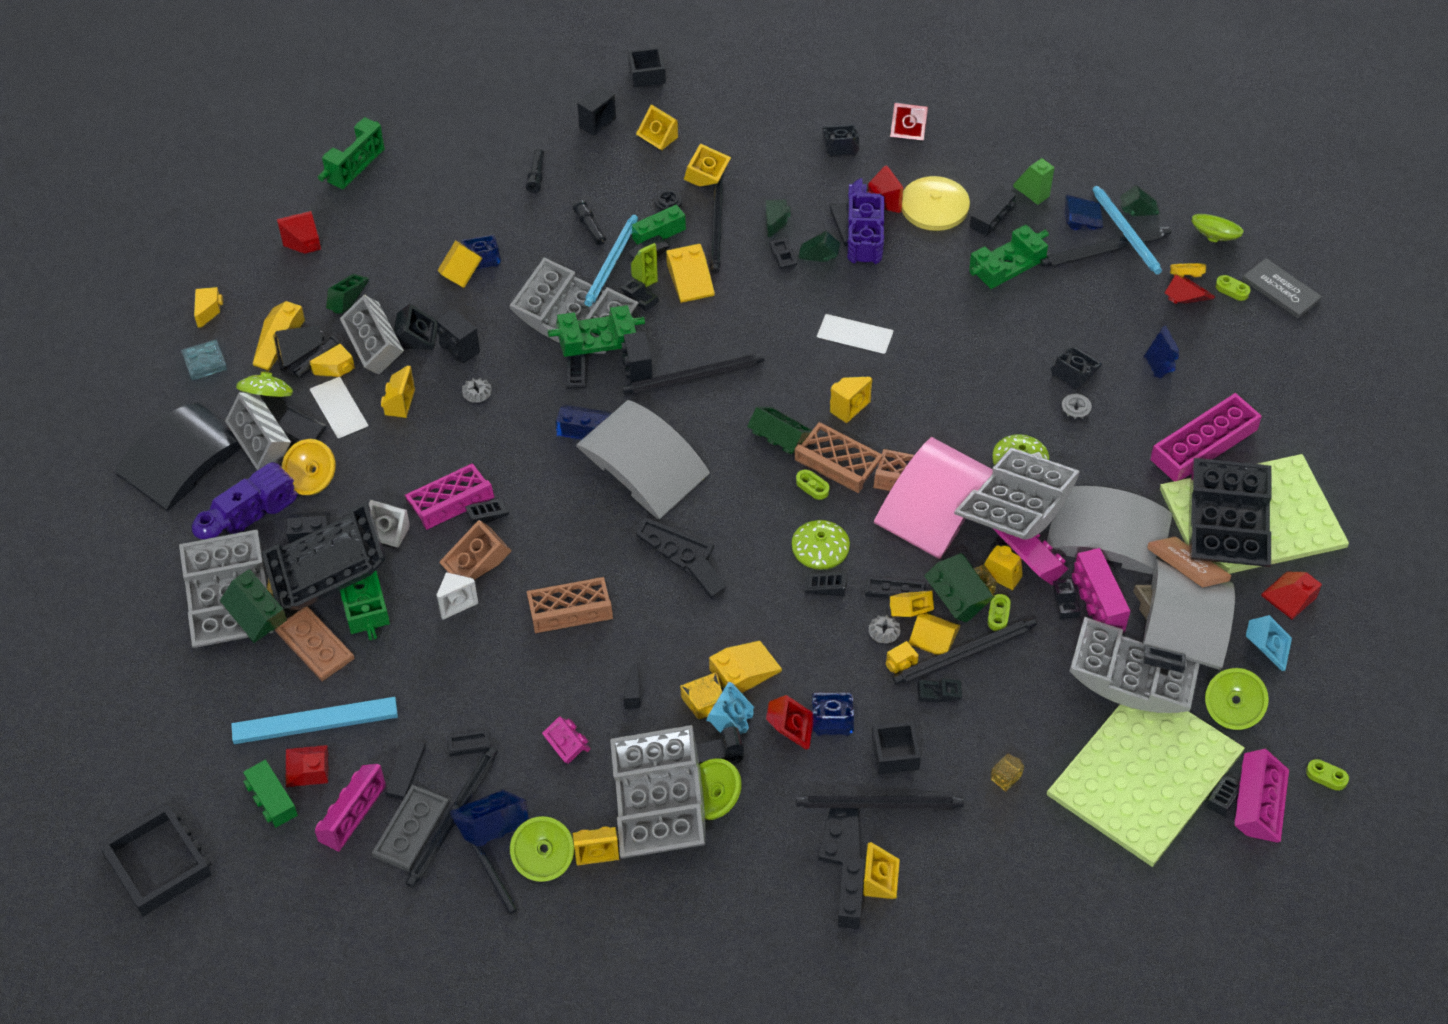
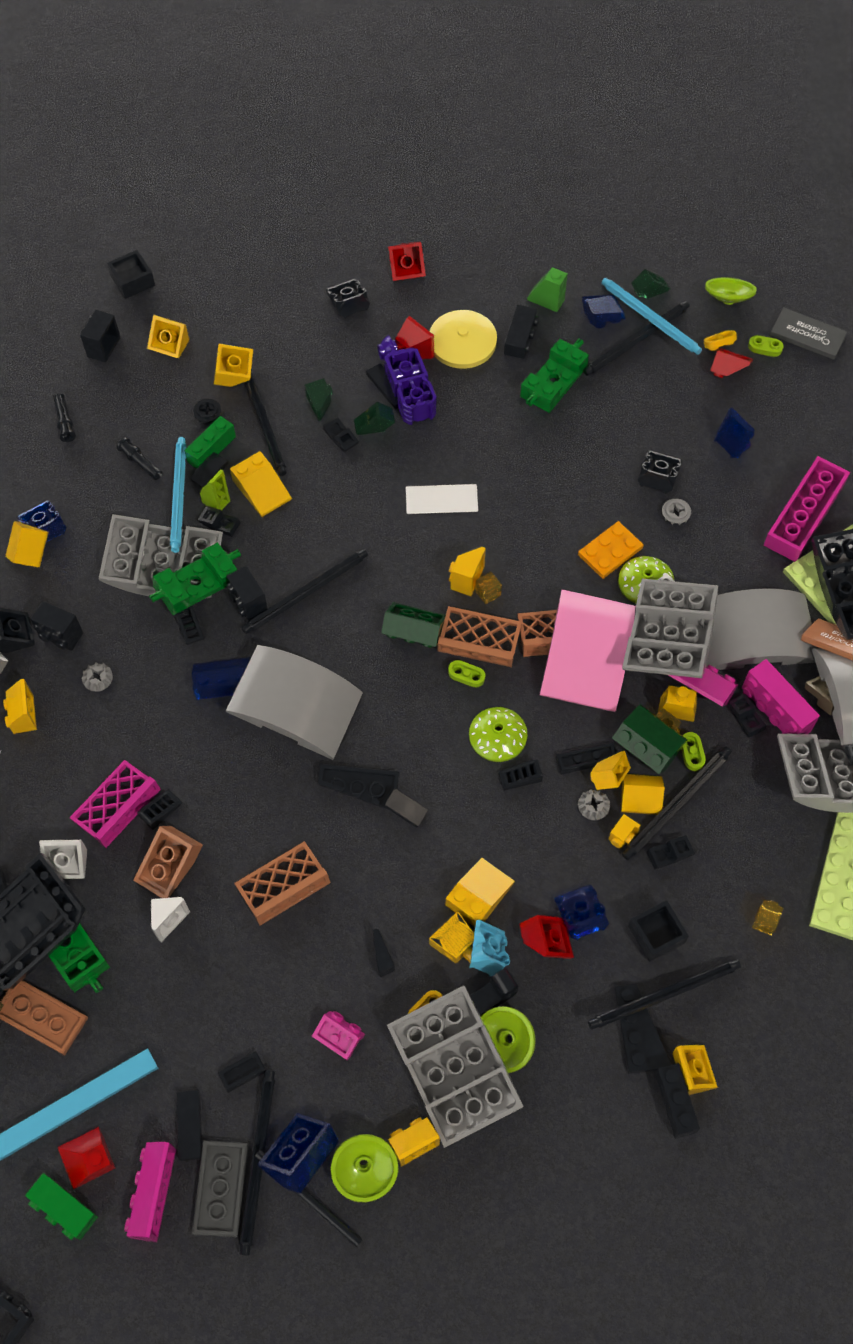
camera: 20 degrees left, 10 degrees up
(864, 418) = (488, 587): none -> clear yellow brick
(997, 421) = (610, 549): none -> light orange plate

